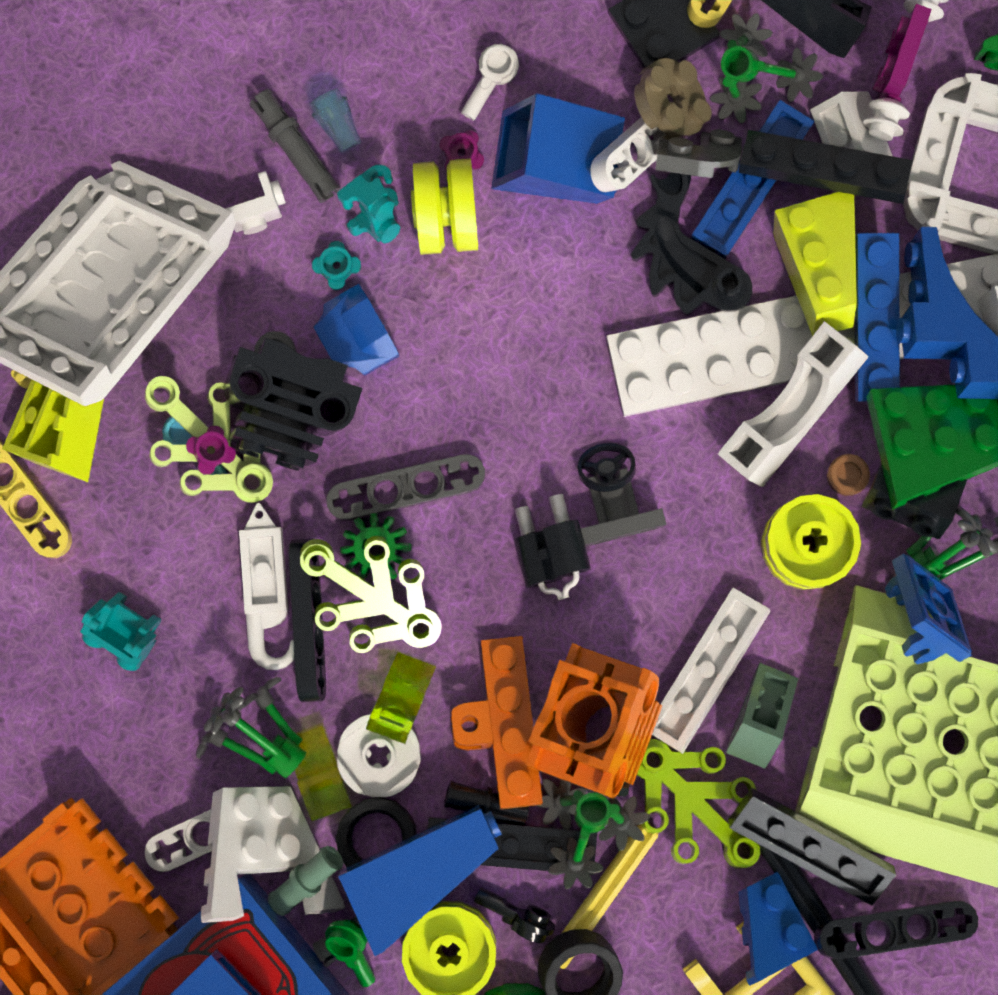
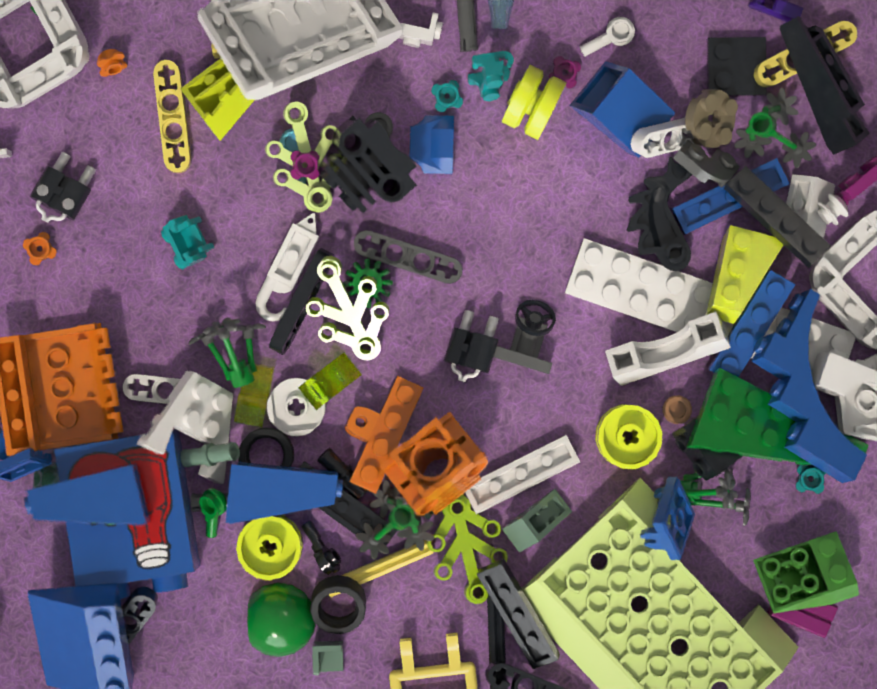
camera: 25 degrees right, 5 degrees up
(772, 928) = (466, 646): blue wing -> none

